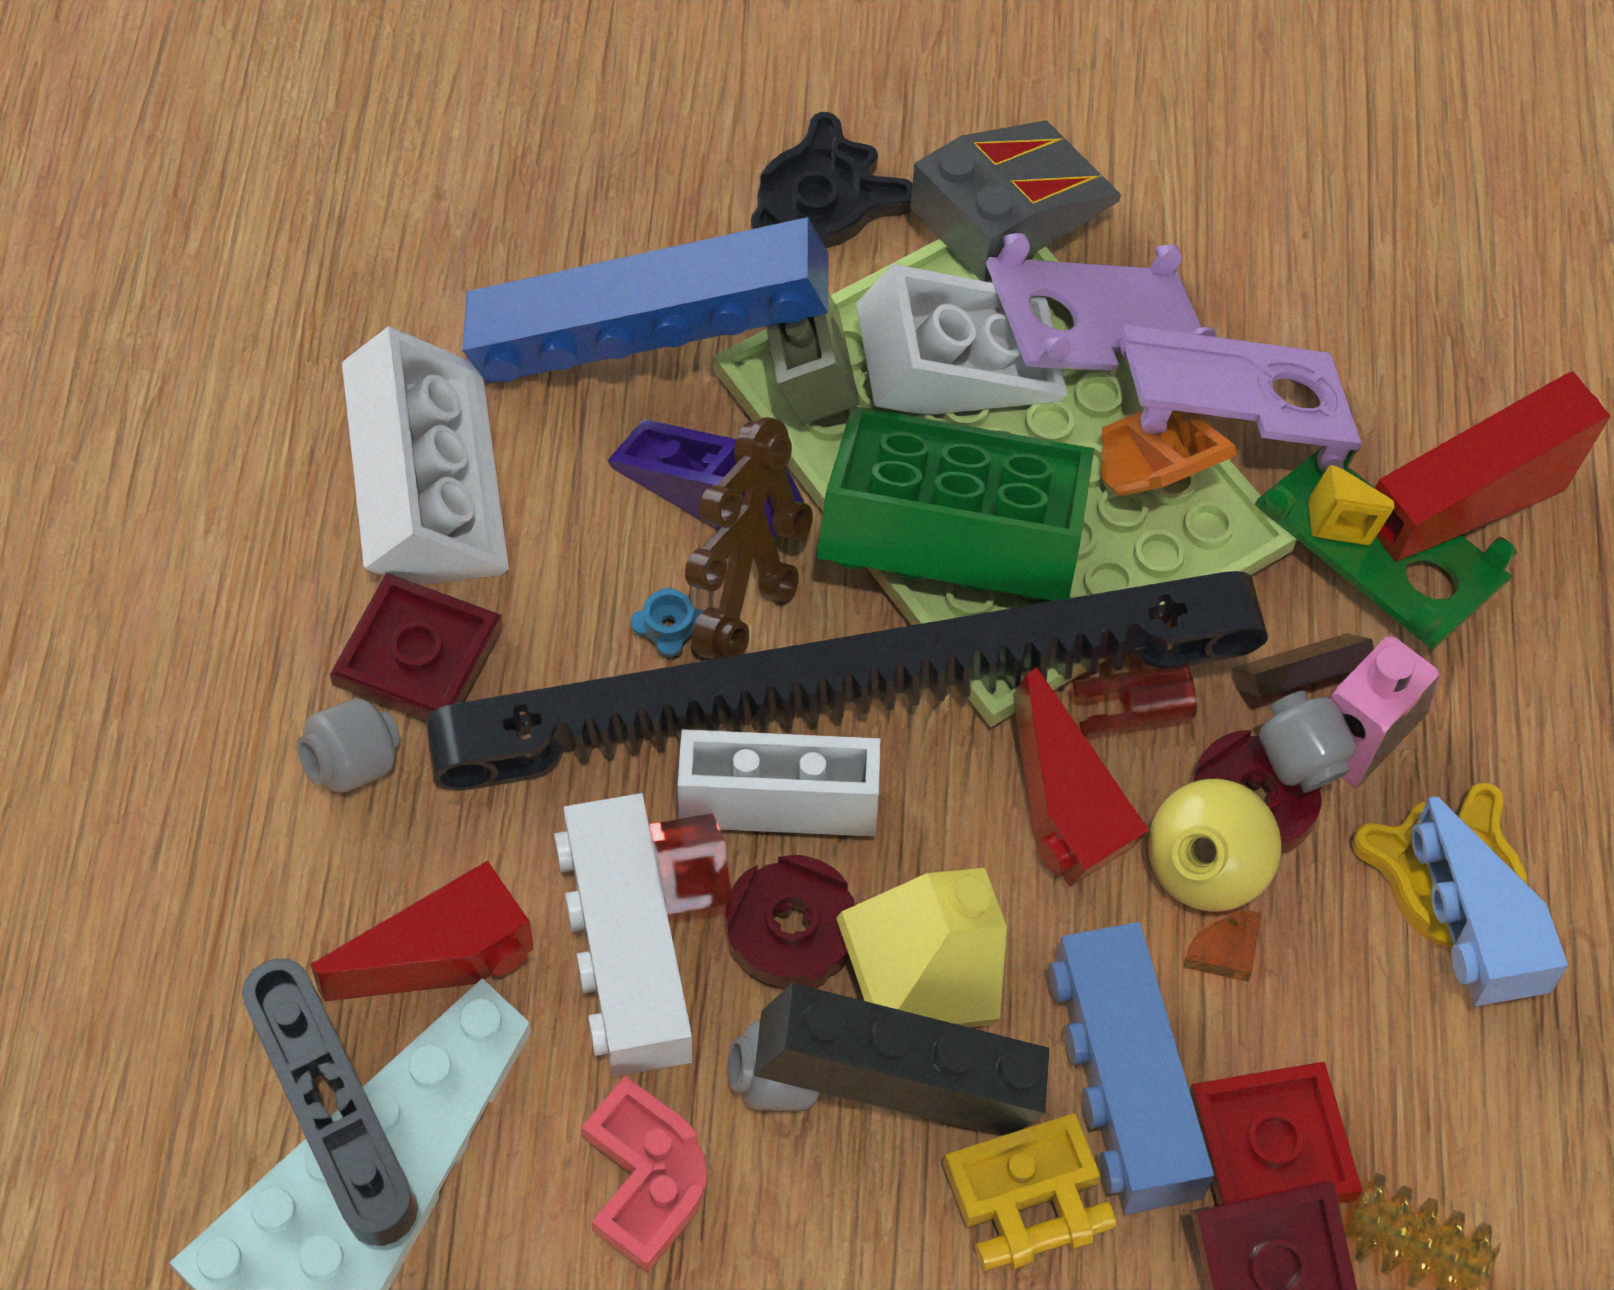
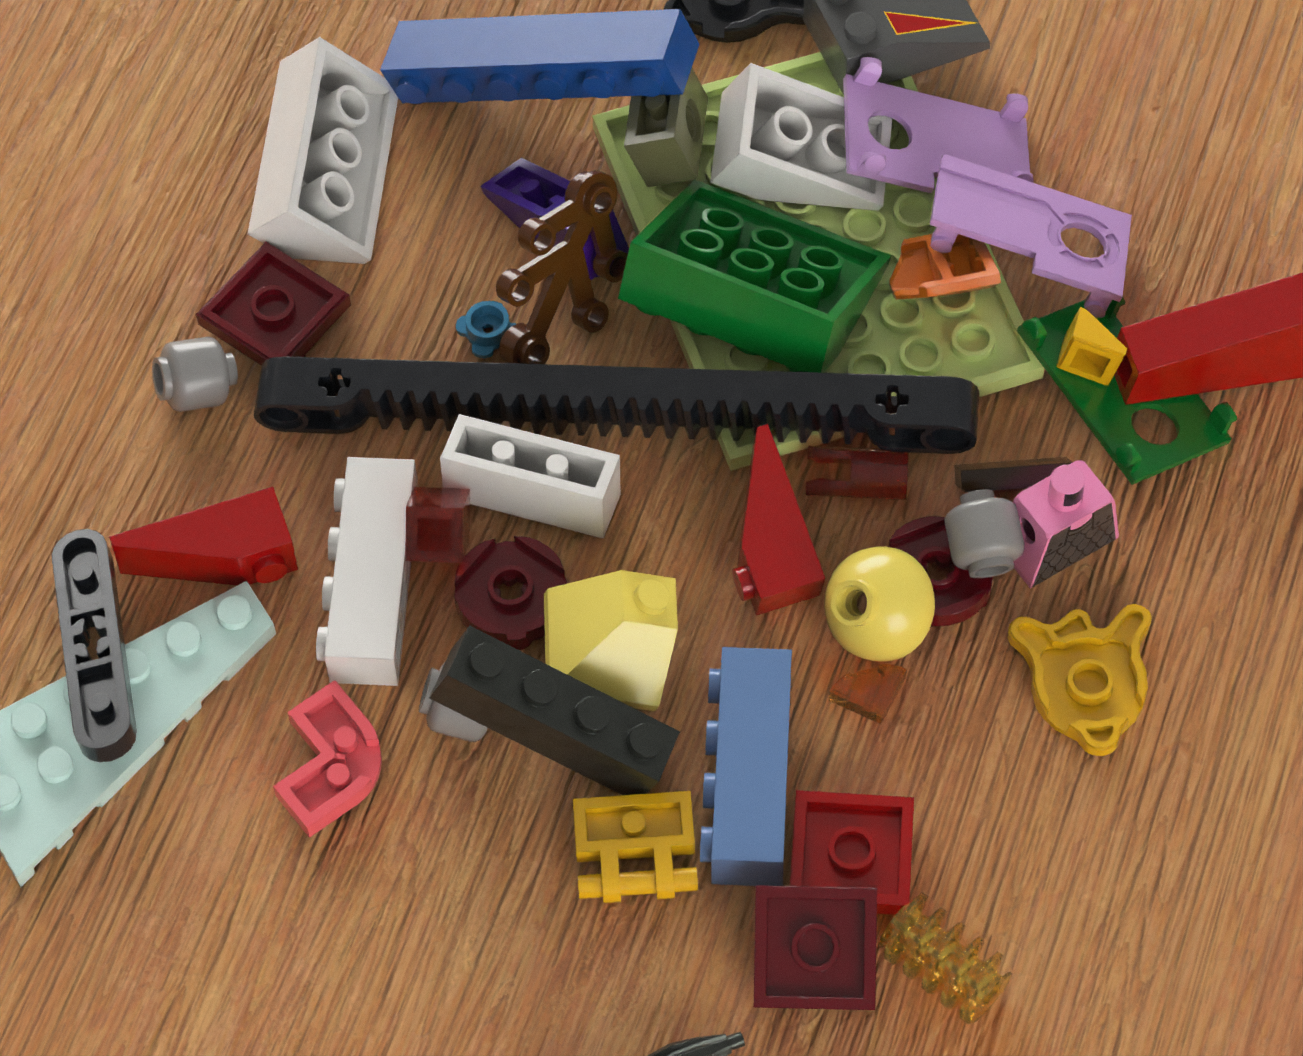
camera: 20 degrees right, 0 degrees up
(1496, 921) = (1098, 713): light blue slope -> none

